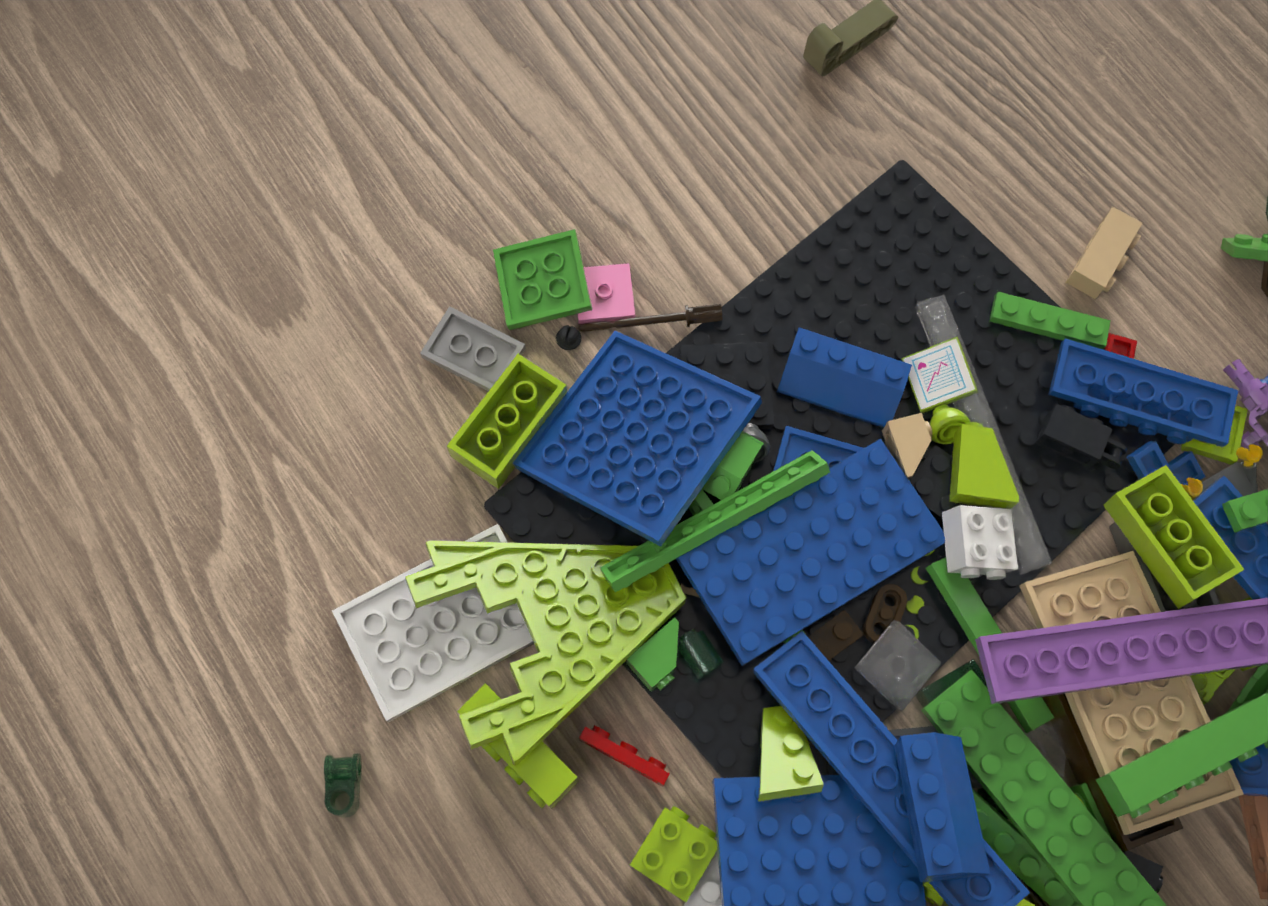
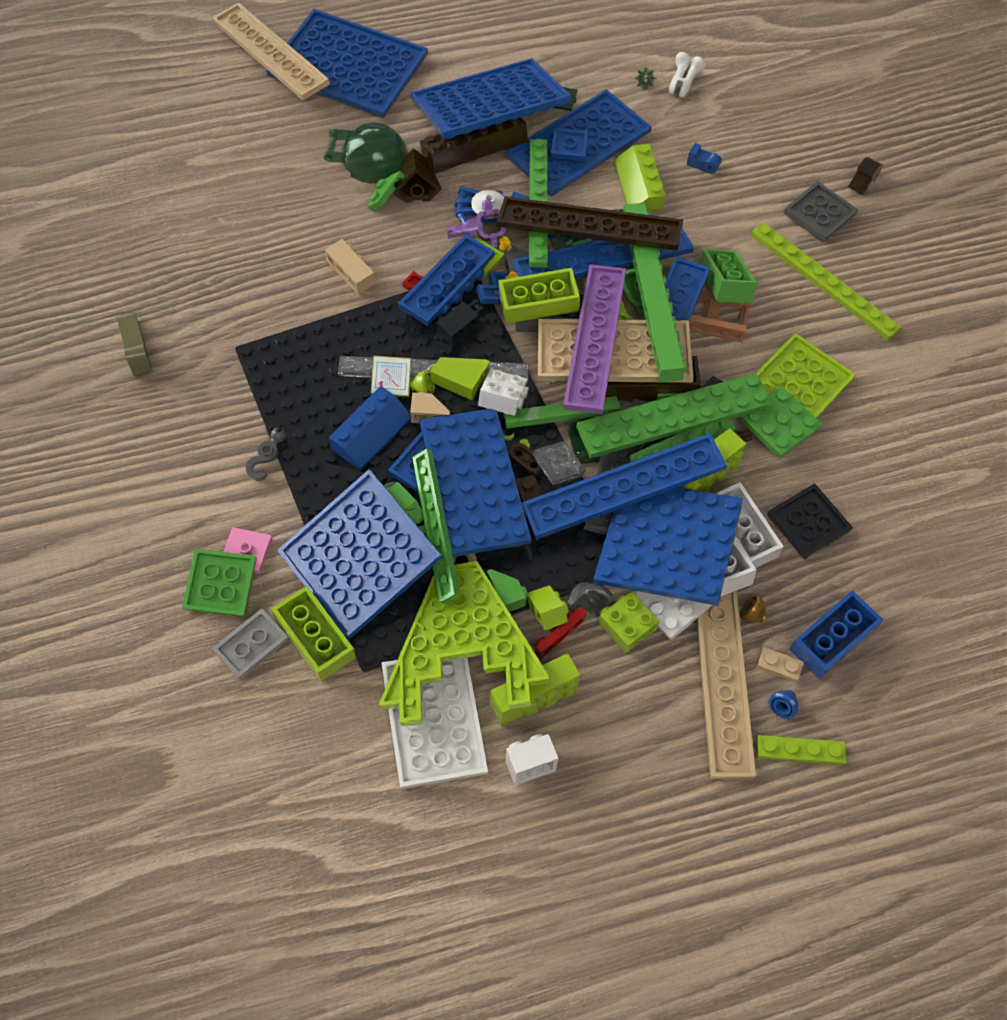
camera: 70 degrees left, 10 degrees down
(342, 781) = (517, 812): clear green piece -> none
(413, 775) = (531, 759): none -> white brick
(568, 337) = (267, 582): black piece -> none
(651, 724) = (547, 607): none -> lime brick
(693, 315) = (287, 502): dark brown piece -> none
(694, 781) = (590, 597): none -> dark grey hair
(699, 653) = (513, 566): clear green brick -> none
(753, 262) = (267, 453): none -> dark grey piece
(786, 758) = (594, 536): lime wing -> none
(940, 807) = (650, 461): blue slope -> none
(1049, 320) = (380, 309): bright green plate -> none

